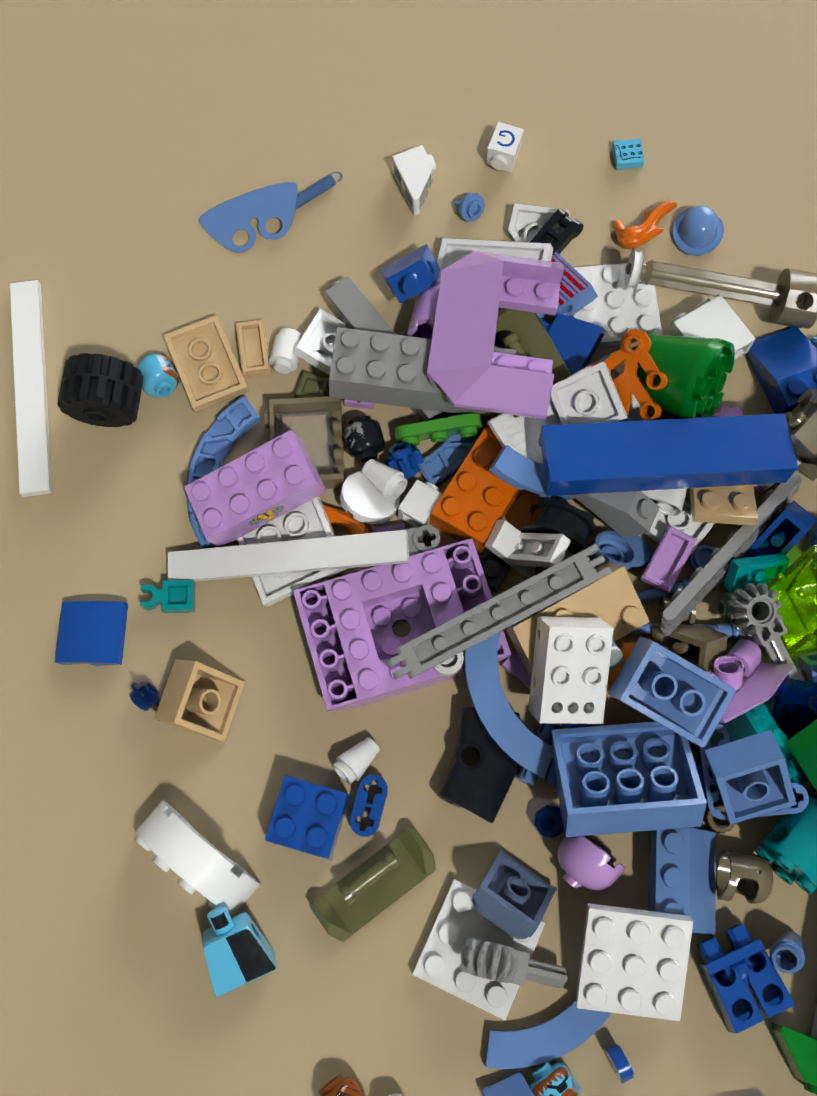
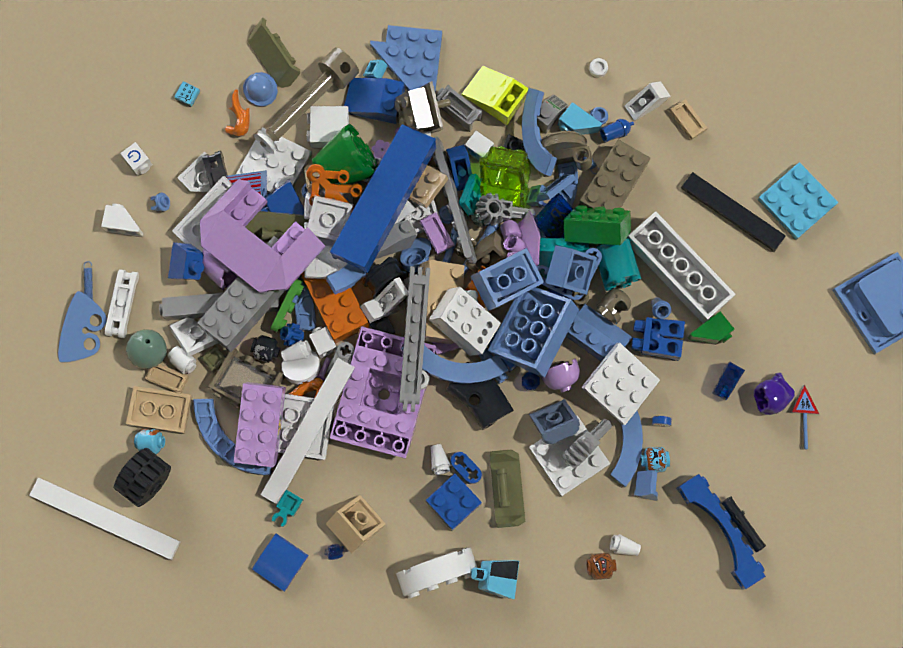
camera: 60 degrees left, 5 degrees up
(271, 298) = (146, 349): none -> sand green piece
(313, 240) = (121, 303): none -> white plate
(753, 218) = (273, 55): none -> olive piece

